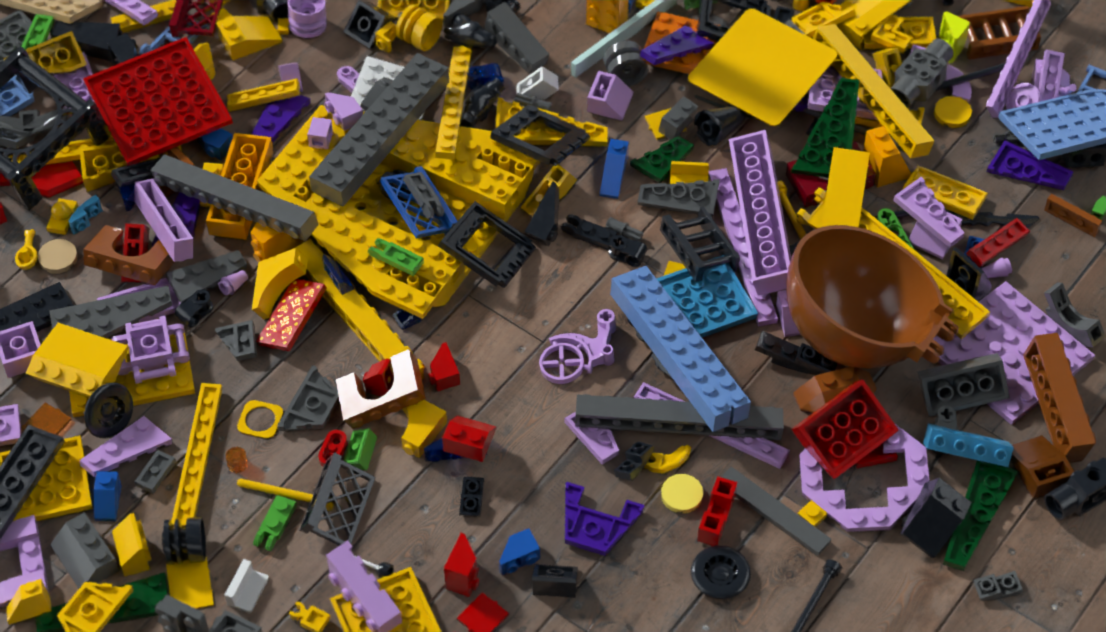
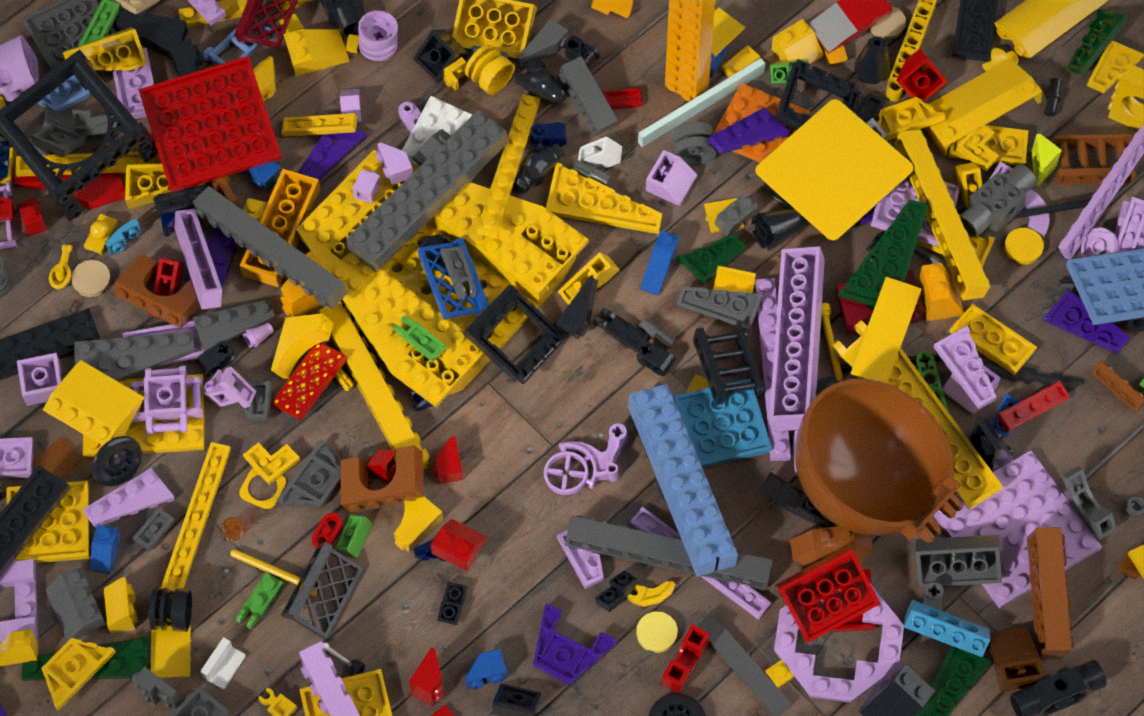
camera: 10 degrees right, 10 degrees up
(208, 333) = (222, 392): none -> lavender tile
(266, 397) = (270, 466): none -> yellow plate
(324, 310) = (343, 379): none -> yellow axle
(337, 275) = (360, 346): slope -> none
(552, 38) = (623, 98): none -> red tile
(553, 155) = (604, 240): black hinge -> none
(999, 268) = (1026, 435): lavender cone -> none

